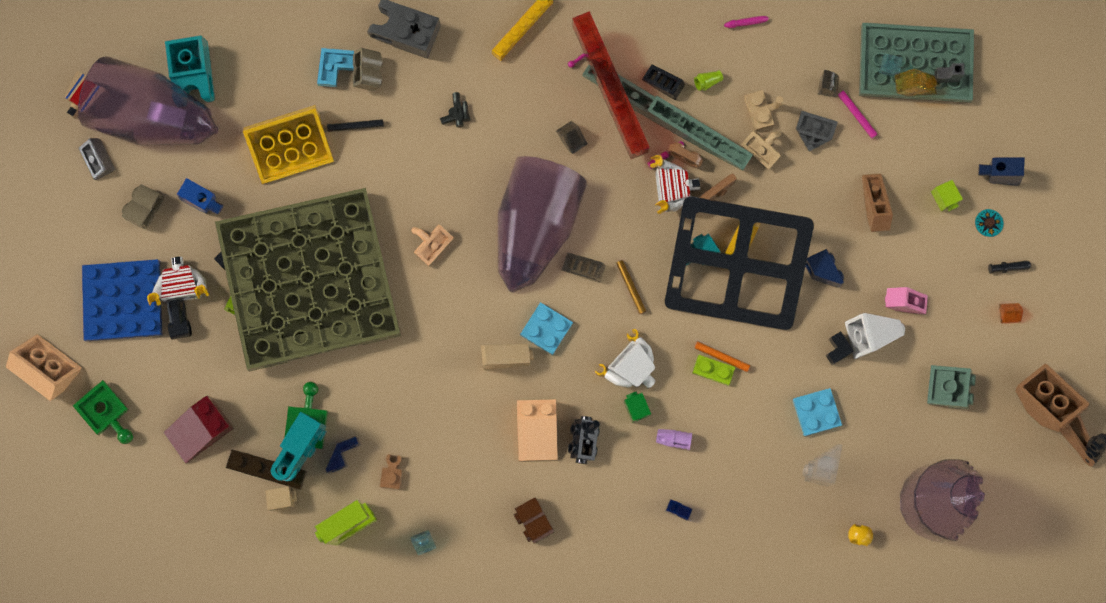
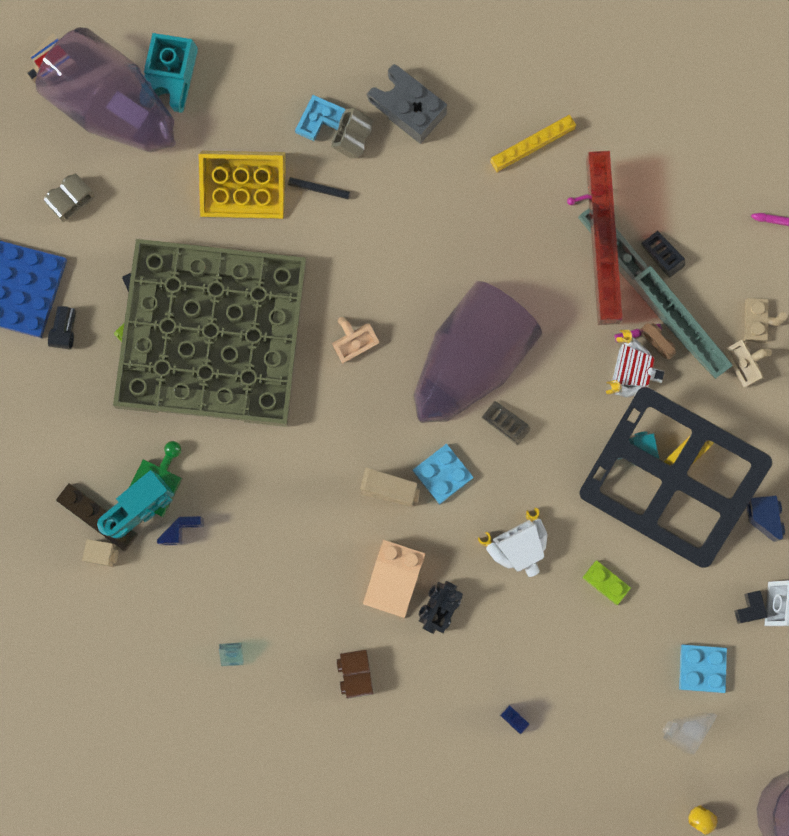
camera: 25 degrees right, 0 degrees up
(96, 158) = (41, 131): flat silver slope -> none
(178, 284) = (76, 290): torso -> none
(192, 193) = (124, 202): blue torso -> none
(198, 428) = (42, 449): slope -> none
(345, 523) = (155, 605): lime arch -> none
(391, 476) = (222, 571): medium nougat plate -> none
(457, 113) = (431, 211): pearl dark grey piece -> none
(572, 137) = (543, 279): clear smoke brick -> none
(631, 287) = (549, 461): pearl gold bar -> none
(636, 406) = (509, 592): green brick -> none
(674, 438) = (537, 641): lavender hinge -> none
(706, 80) = (711, 268): lime cone -> none
(720, 189) = (683, 390): medium nougat plate -> none
(721, 356) = (628, 578): orange bar -> none

